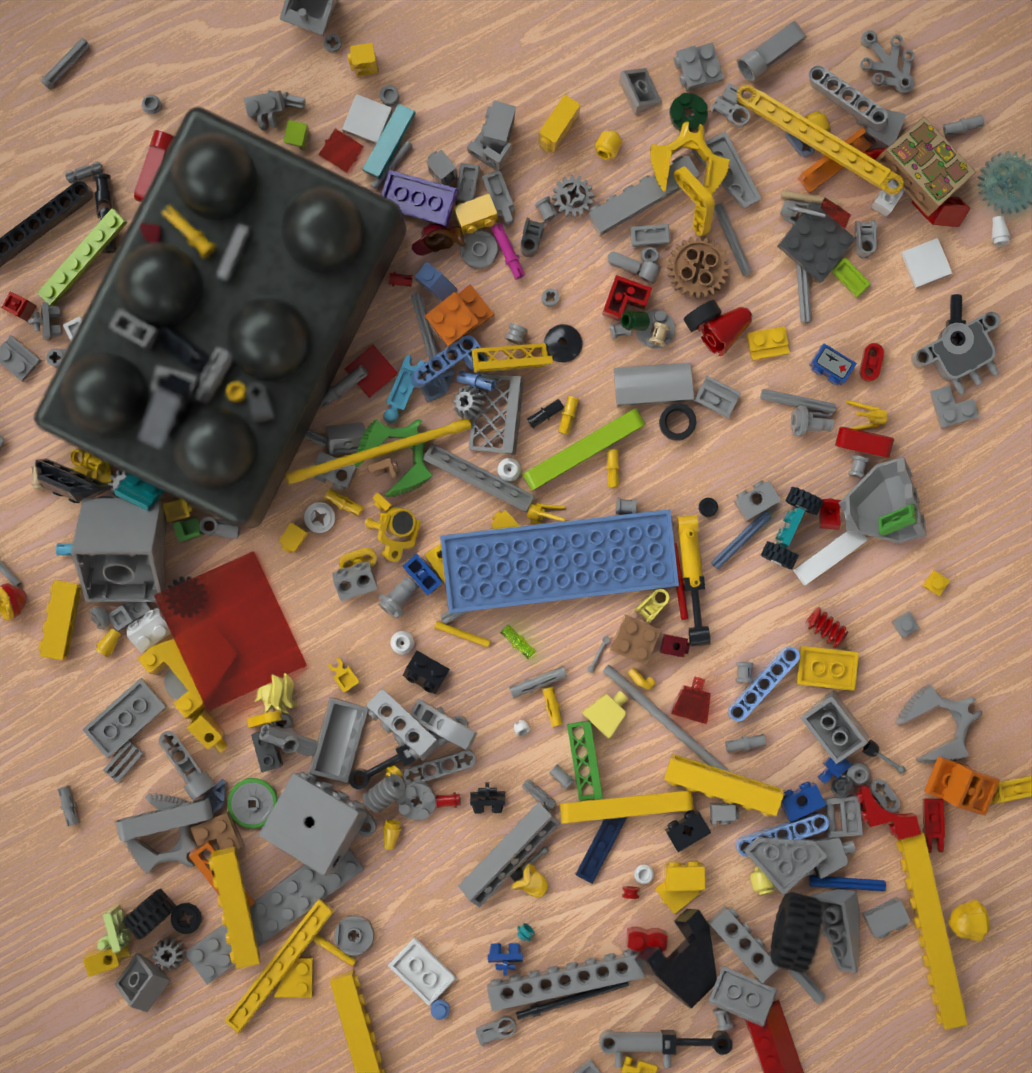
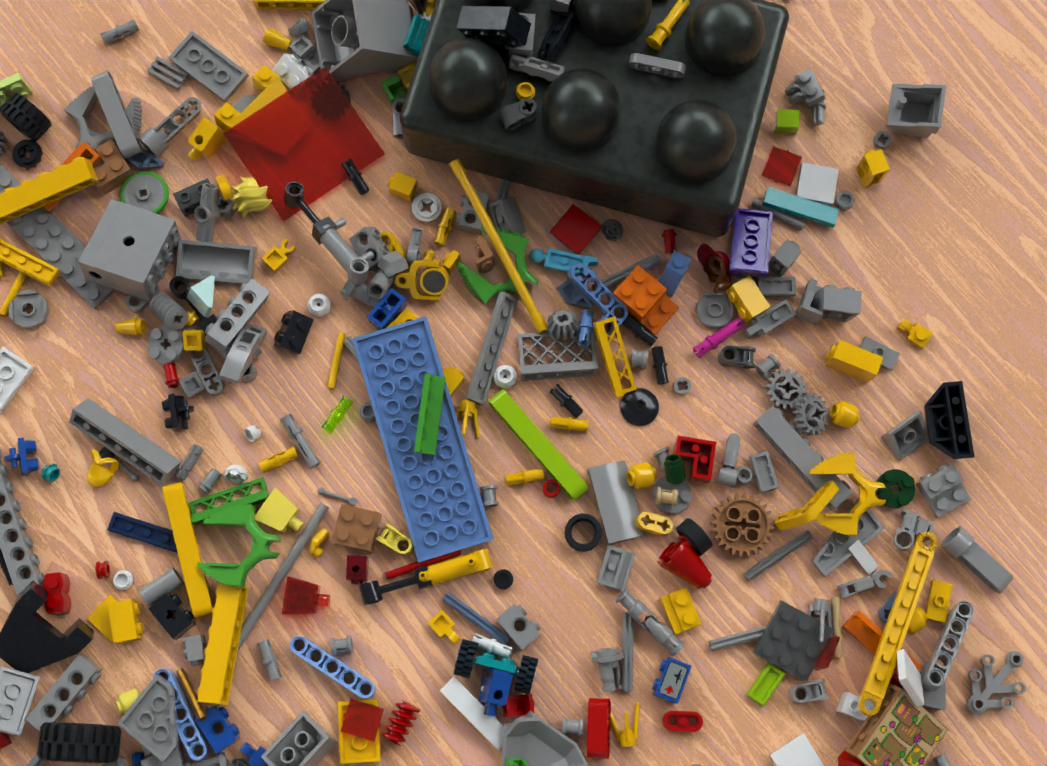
camera: 75 degrees right, 10 degrees down
(274, 584) = (355, 176): none -> black axle
(333, 622) = (325, 232): none -> light grey piece
(345, 384) = (549, 199): light grey pin -> none
(359, 536) = (414, 246): none -> light grey piece
(374, 756) = (202, 295): none -> light aqua slope
(377, 560) = (392, 263): none -> light grey piece
(378, 334) = (612, 229): none -> dark grey plate
(392, 574) = (380, 284): none -> light grey pin
(418, 772) = (193, 340): none -> yellow plate
(461, 781) = (191, 384): none -> light grey plate
(488, 326) = (639, 330): none -> black axle
(521, 611) = (367, 413): none -> light grey plate
(525, 314) = (660, 365): none -> black axle
(540, 55) = (917, 334): none -> yellow plate
(540, 548) = (430, 414): none -> bright green fence
(551, 97) = (890, 356): none -> light grey plate
(560, 749) = (236, 474): none -> white plate
(603, 177) = (811, 414): none -> light grey gear
(631, 439) = (545, 487): none -> red bush
(633, 354) = (641, 475): none -> yellow head
(635, 44) = (949, 421): none -> black wedge
(657, 837) = (160, 586): none -> light grey pin
(662, 761) = (240, 516): none -> bright green piece
(685, 354) = (655, 519): none -> yellow beam
(743, 572) = (443, 625): none -> yellow plate
(749, 158) = (863, 557): none -> white sticker
(766, 821) = (191, 694): none -> pearl gold bar
(770, 528) = (493, 646): none -> white pin
(774, 163) = (864, 584): none -> light grey piece
(785, 366) = (660, 631): none -> light grey piece
(802, 97) = (938, 601): none -> yellow plate
(814, 533) = (495, 683): none -> blue torso
(818, 663) = (362, 720): none -> clear red piece
(875, 140) = (910, 678): none -> white tile

